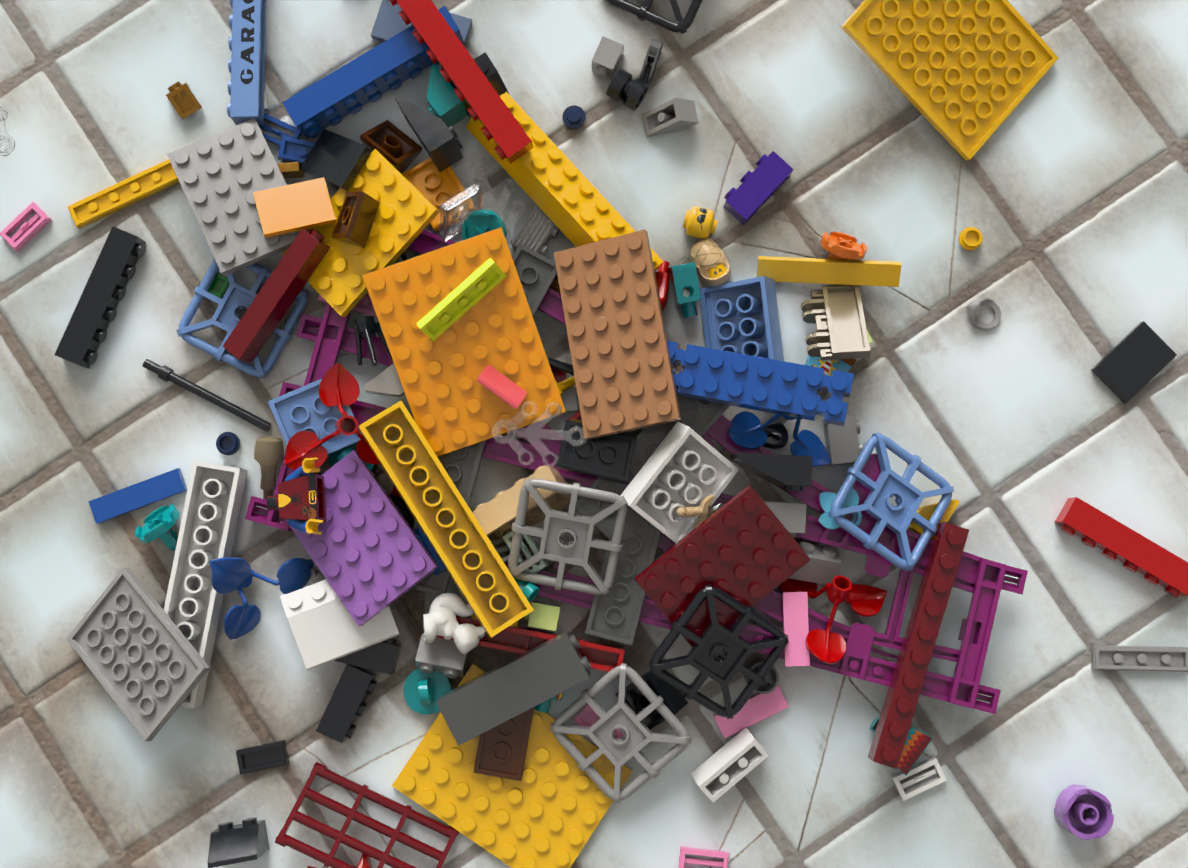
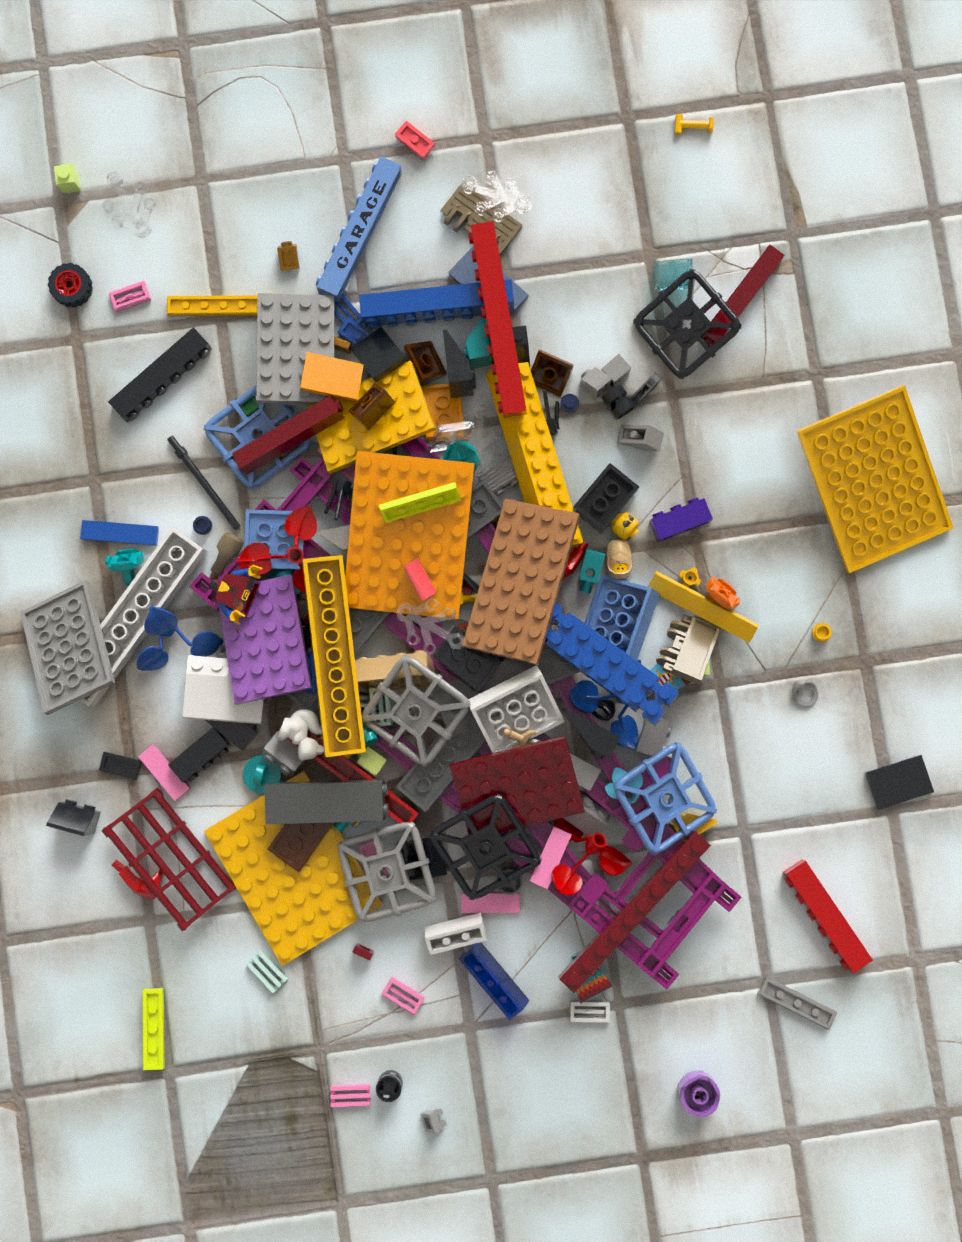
camera: 25 degrees right, 0 degrees up
(305, 737) = (158, 766): none -> bright pink tile
(537, 92) = (551, 372): none -> reddish brown slope
(568, 149) = (552, 426): none -> black plant
(591, 80) = (595, 382): none -> light grey slope
(636, 834) = (363, 951): none -> dark red tile
(664, 201) = (605, 498): none -> black brick
(797, 796) = (494, 980): none -> clear blue brick
(798, 239) = (693, 573): none -> yellow plate

